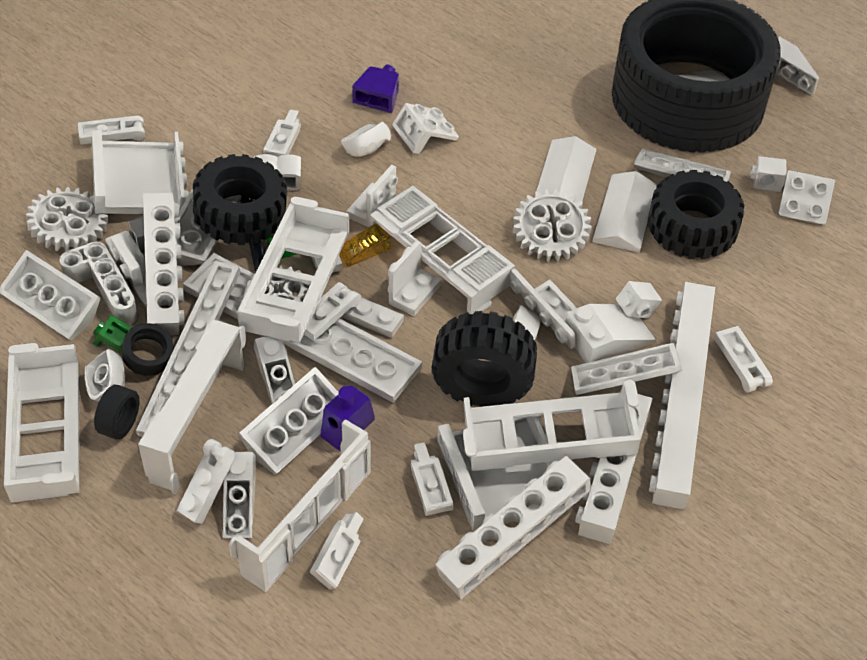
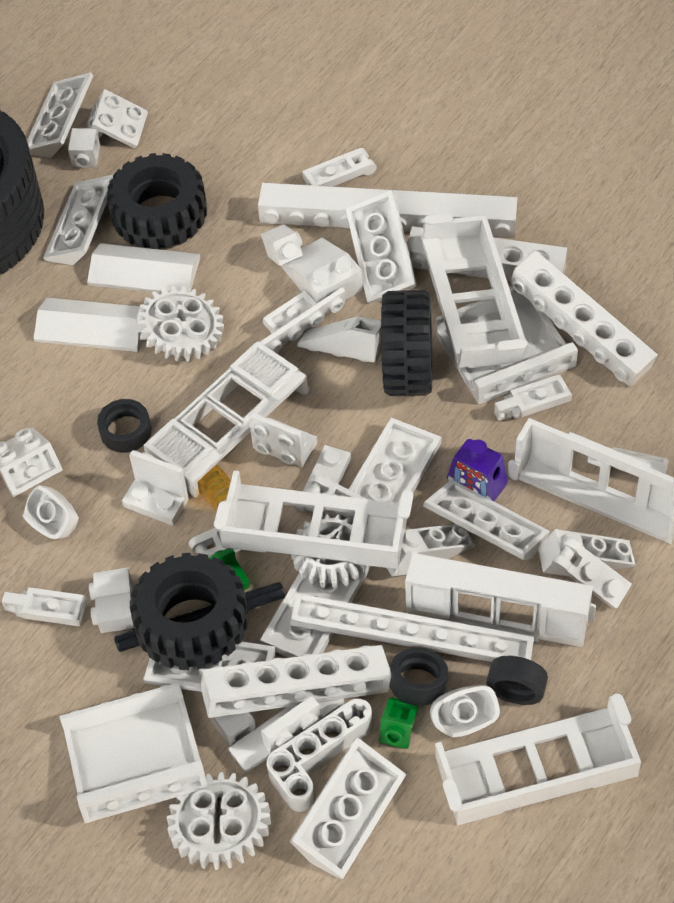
camera: 90 degrees left, 5 degrees up
(113, 129) = (43, 815): white plate -> none
(448, 174) = (118, 409): none -> black tyre
(815, 160) = (57, 115): none -> white slope

